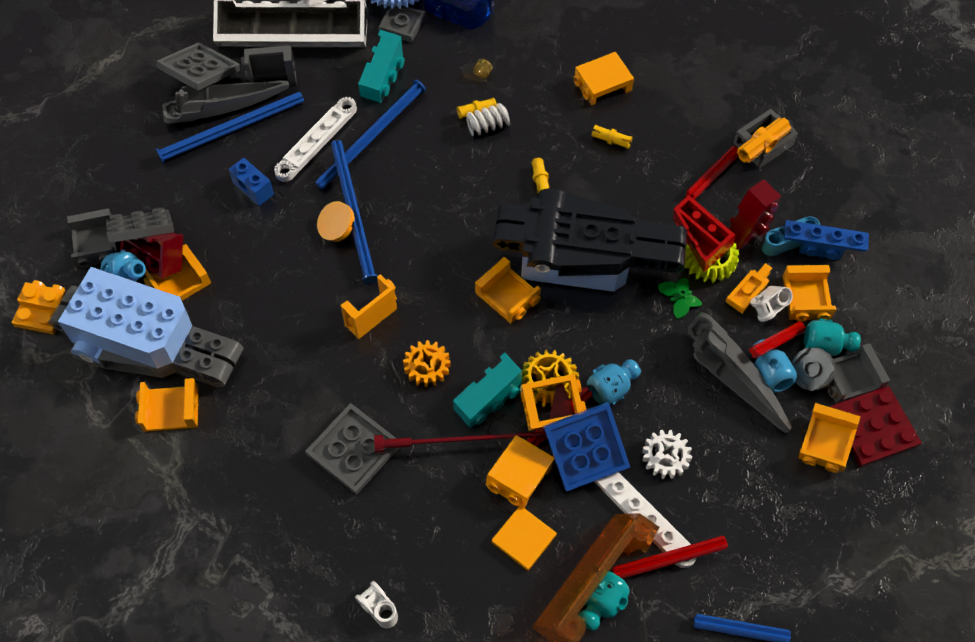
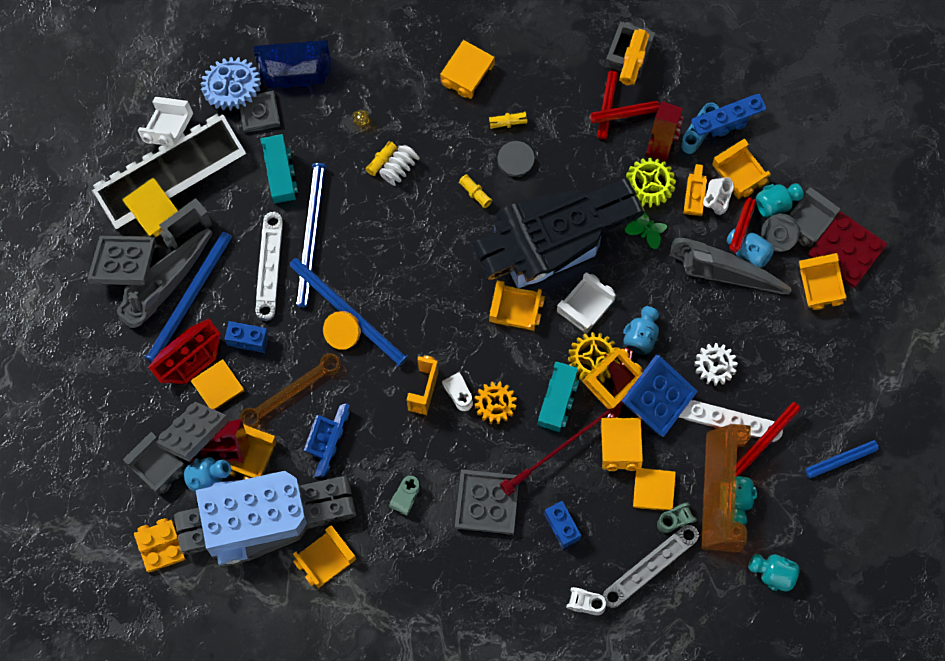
camera: 30 degrees left, 10 degrees up
(189, 167) = (187, 354): none -> red wedge
(197, 208) = (217, 385): none -> light orange tile
(249, 300) = (324, 437): none -> blue bracket
(252, 33) = (150, 207): none -> yellow panel
(254, 247) = (291, 390): none -> clear orange piece
(280, 396) = (403, 498): none -> sand green piece
(400, 334) = (458, 389): none -> white piece
(408, 513) = (562, 524): none -> blue brick
(468, 611) = (651, 566): none -> light grey plate
(528, 579) = (679, 517): none -> sand green piece
(577, 326) = (587, 302): none -> white panel
(597, 171) = (515, 159): none -> dark grey tile
(705, 233) = (642, 170): red wedge -> none
(717, 181) = (623, 112): none -> red axle

